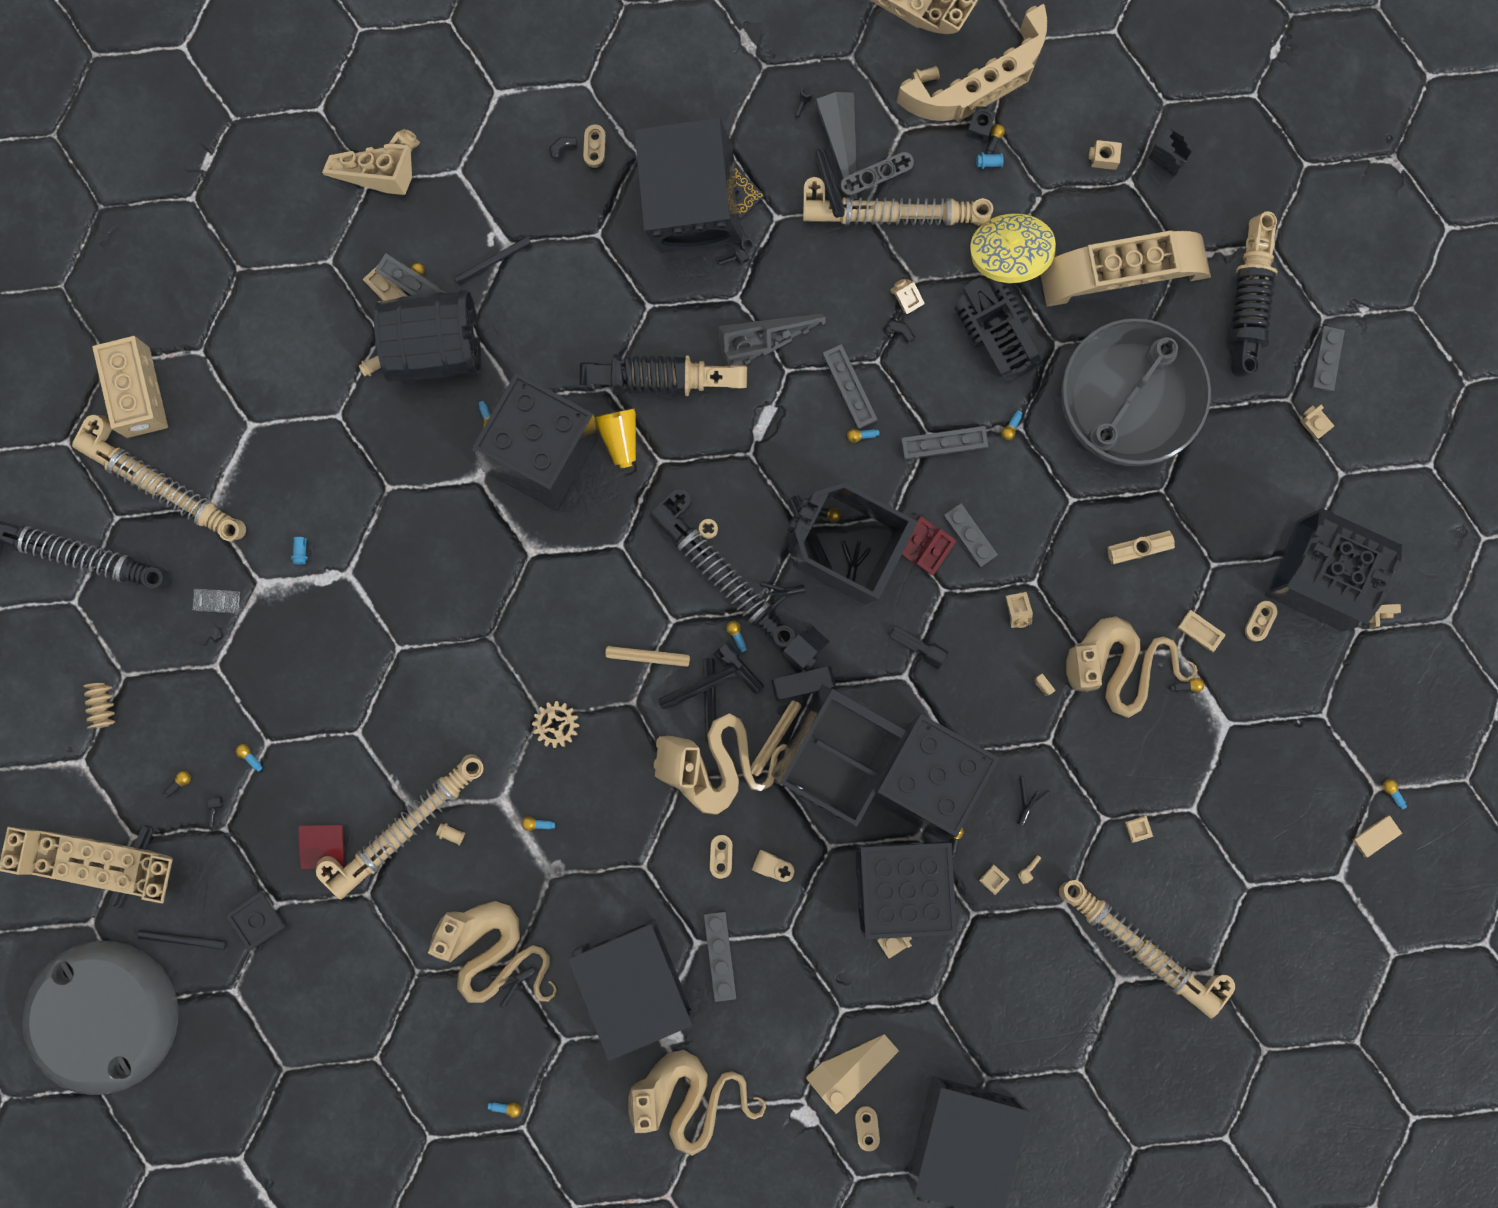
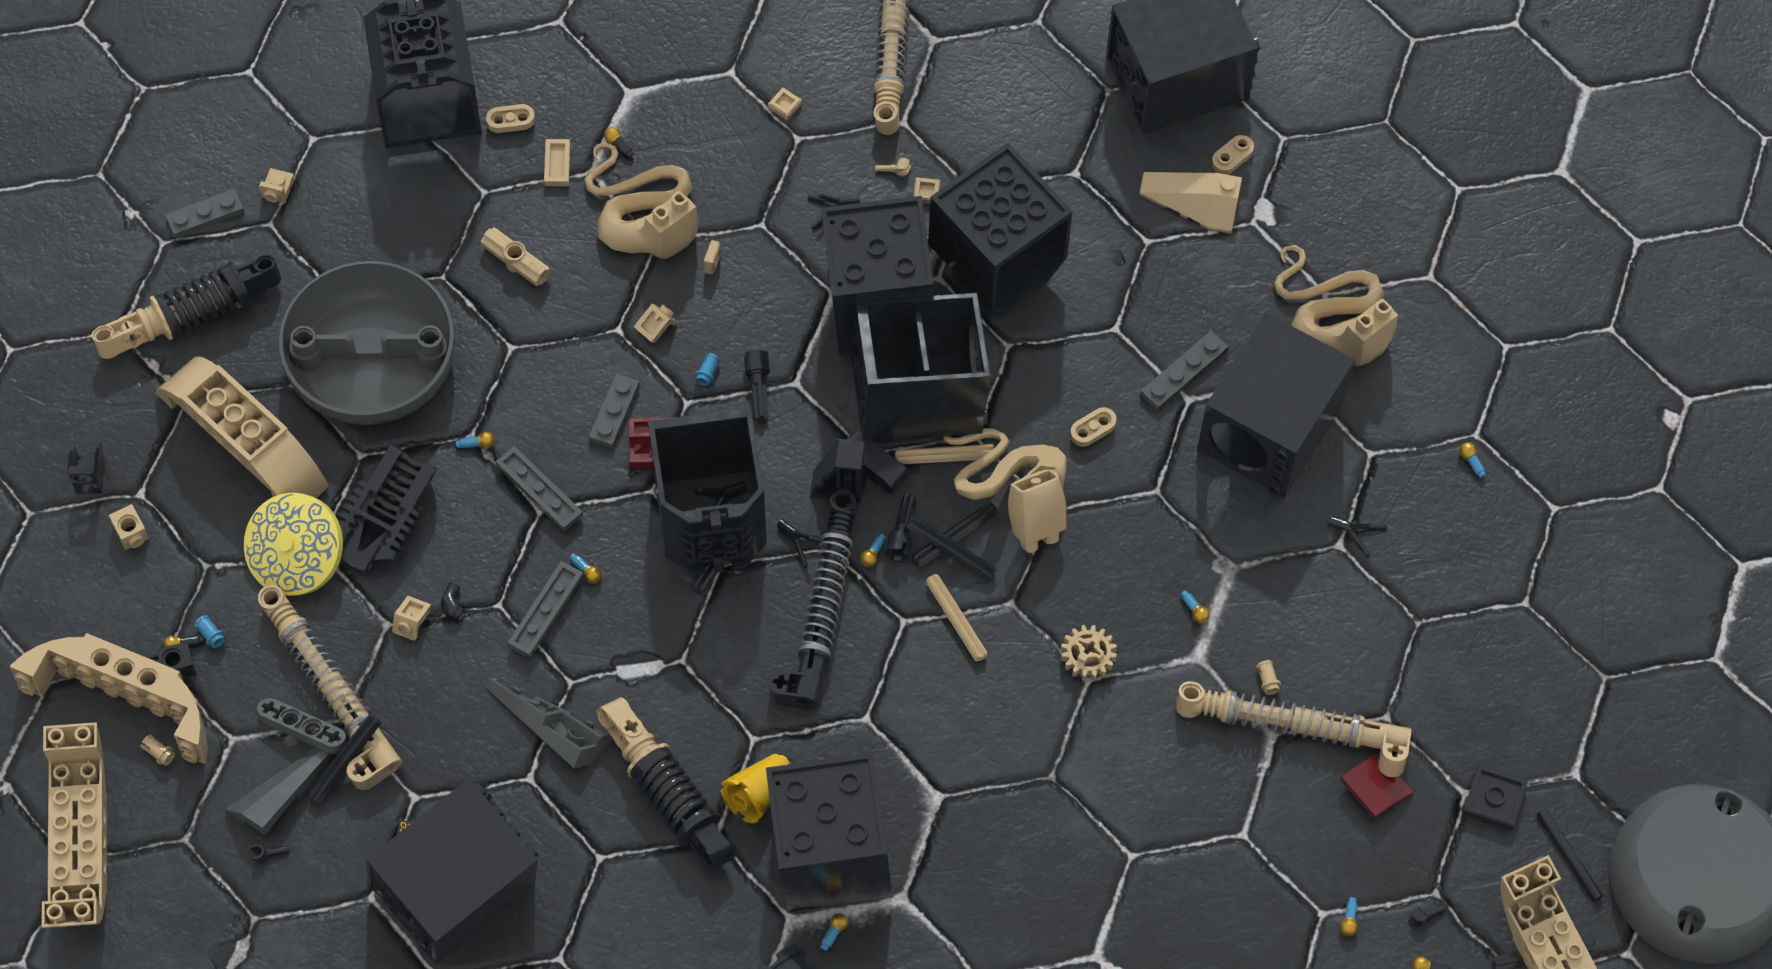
camera: 125 degrees left, 20 degrees down
(461, 930) = (1348, 601): tan hips -> none
(708, 522) = (788, 637): tan bush -> none
(769, 865) = (1066, 375): tan piece -> none
(956, 620) = (705, 374): none -> dark azure pin

